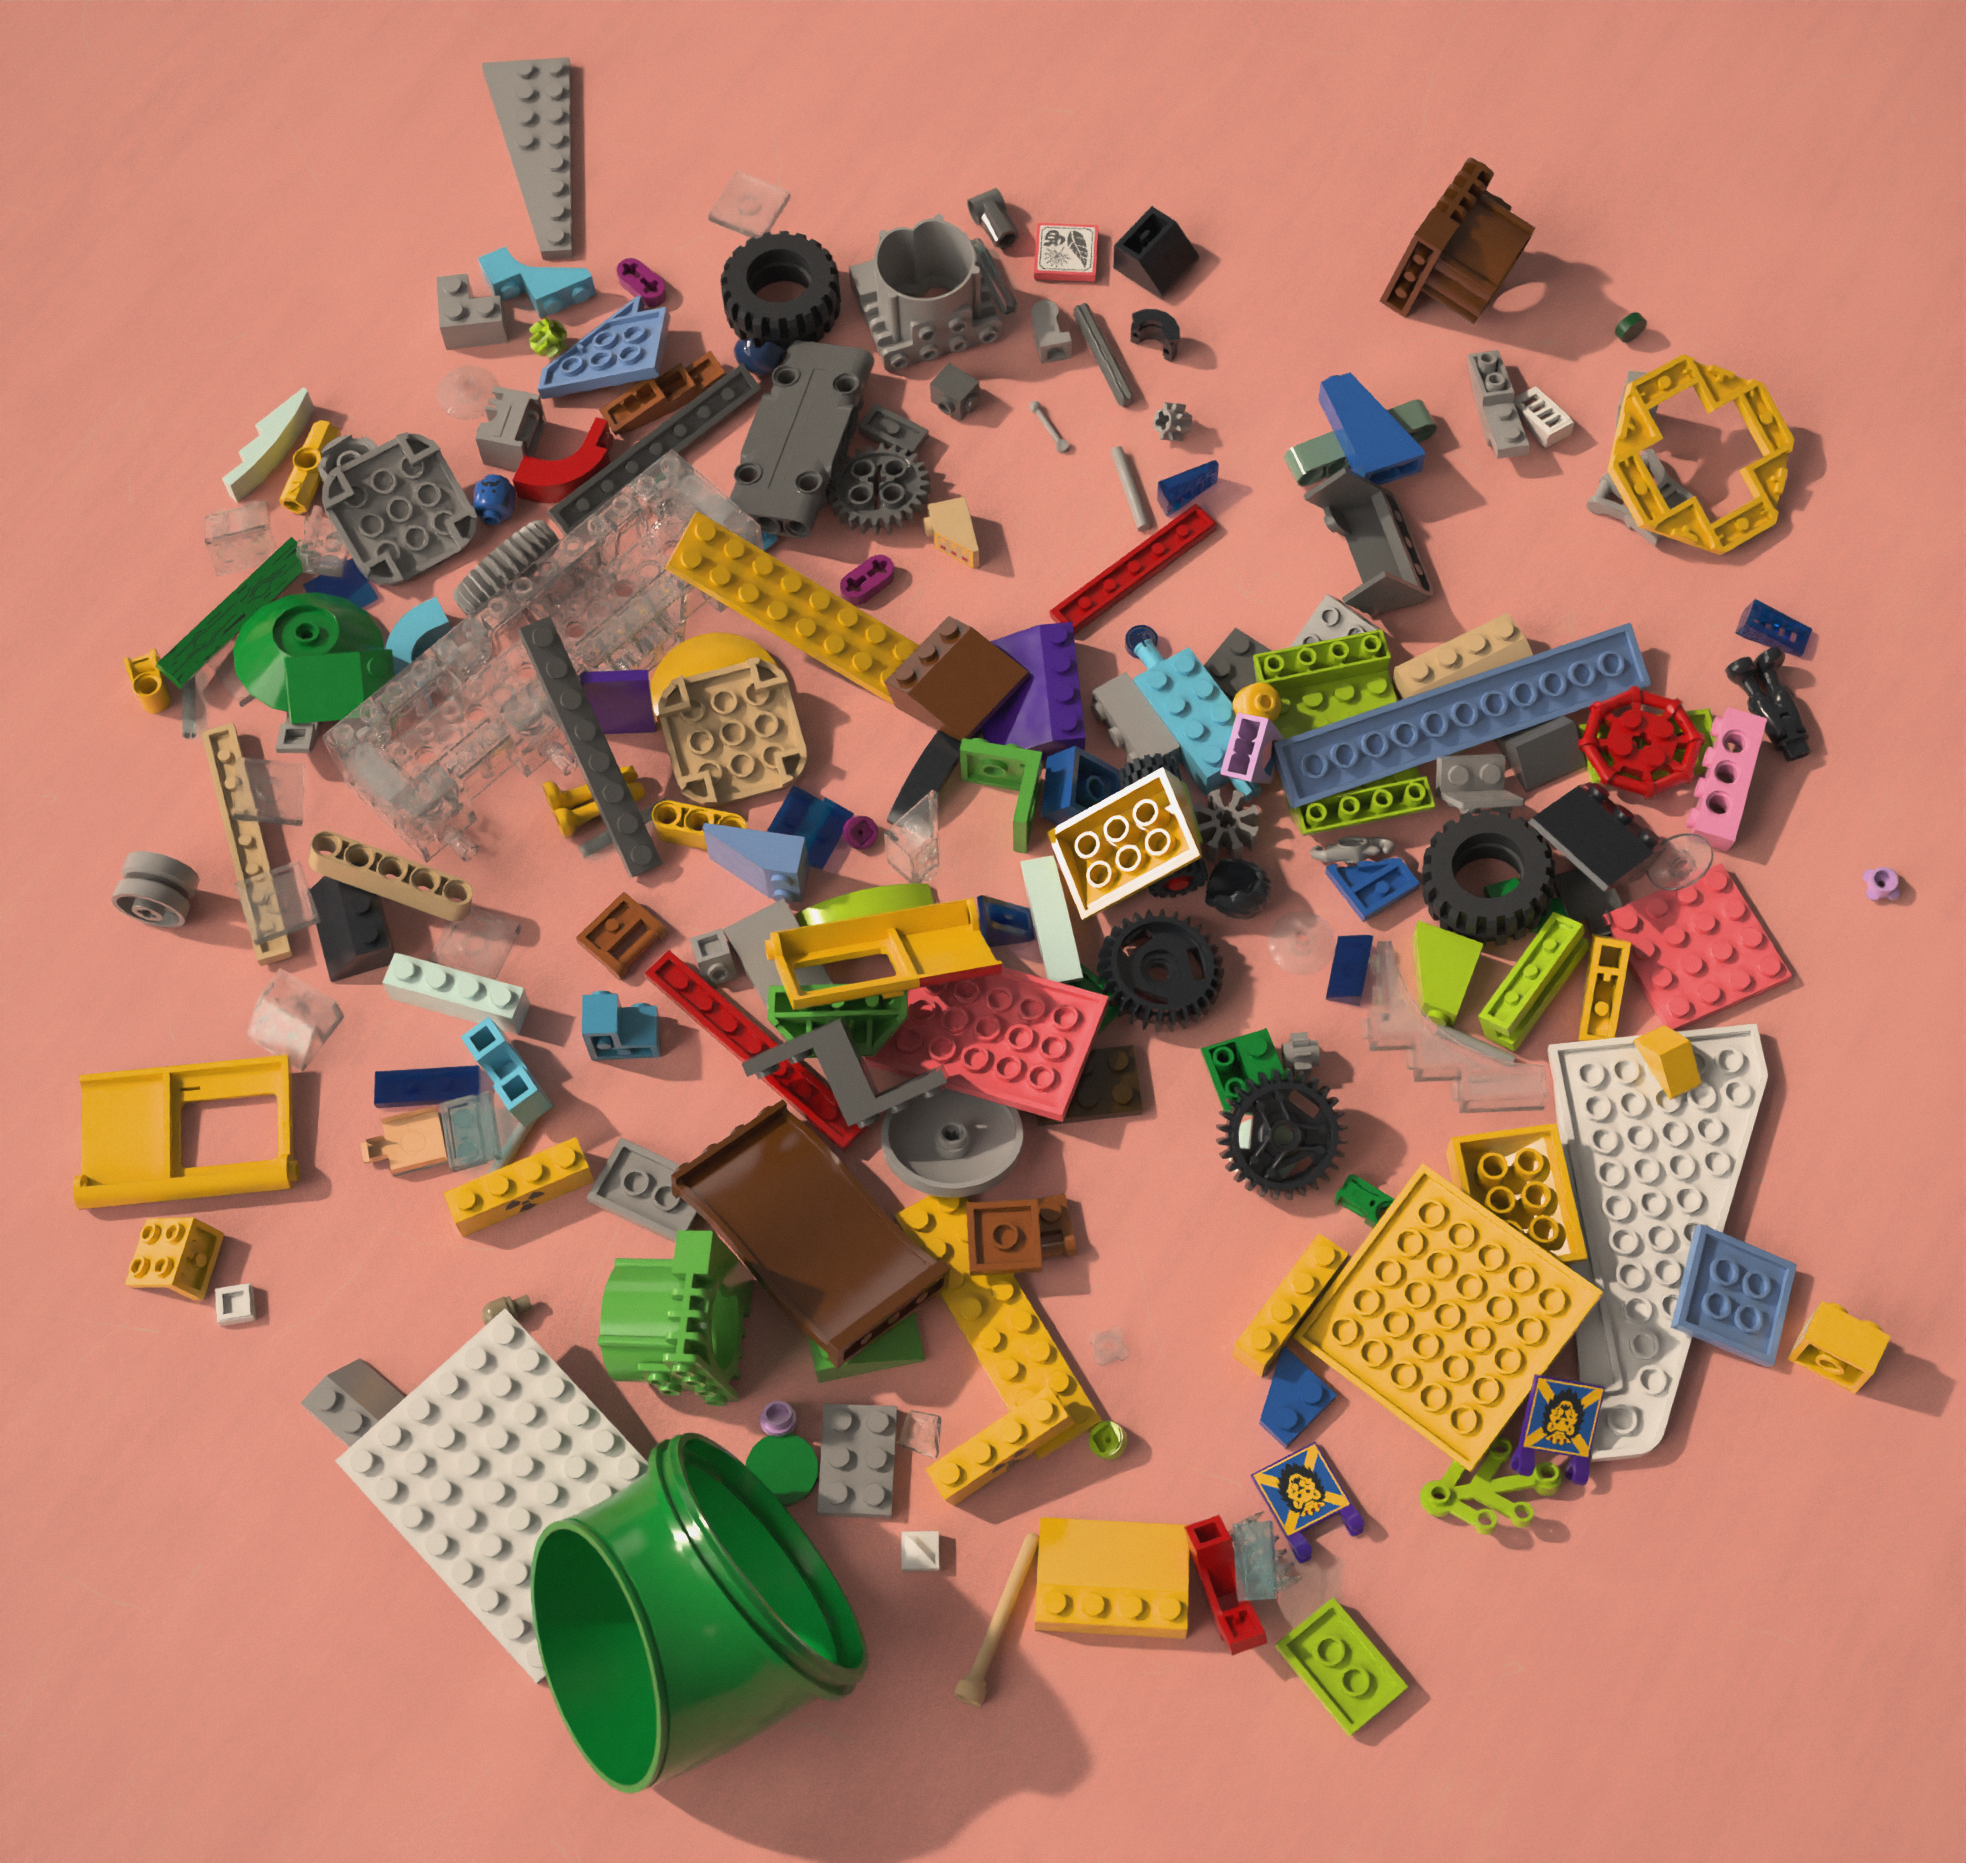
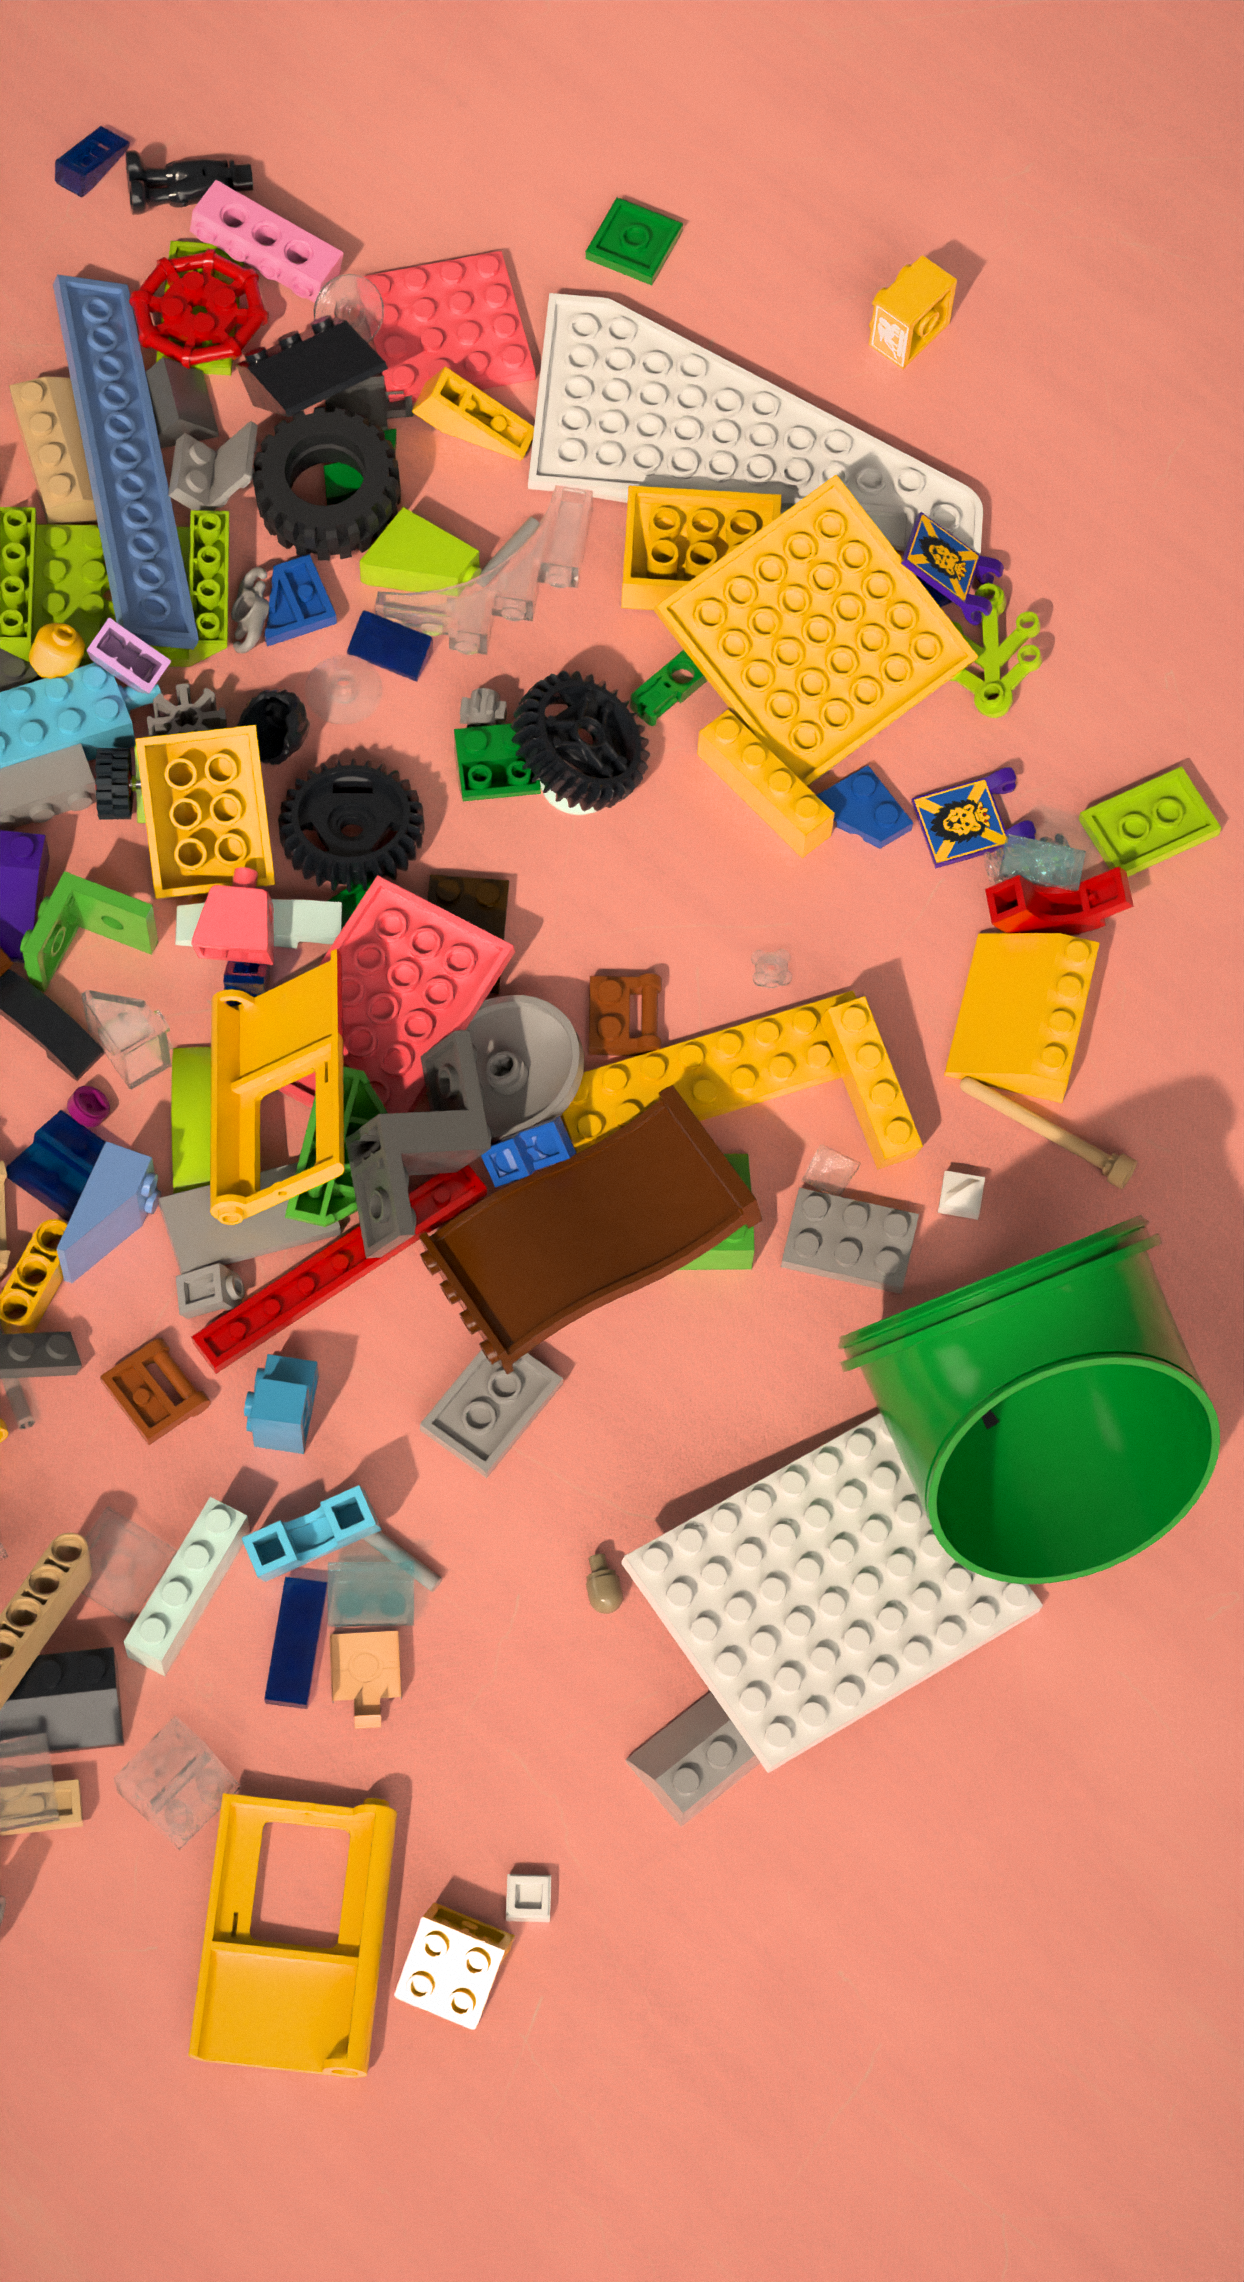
camera: 85 degrees left, 0 degrees up
(518, 1187) = (457, 1546): yellow brick -> none
(678, 1319) = (677, 1372): bright green hose -> none
(778, 1419) = (790, 1310): lavender plate -> none
(785, 1467) = (839, 1310): green tile -> none
(870, 1164) = (528, 1151): none -> blue slope
(1004, 1237) = (636, 1036): dark orange plate -> none
(1035, 896) = (237, 922): none -> coral torso
(1075, 784) = (104, 858): blue slope -> none
(1108, 1440) = (877, 987): lime tile -> none
(1534, 981) = (455, 473): lime brick -> none
(1670, 1060) = (573, 374): yellow slope -> none
(1734, 1295) = (838, 387): medium blue plate -> none
(1846, 1089) = (634, 241): none -> green tile
(1887, 877) = (417, 139): lavender plate -> none

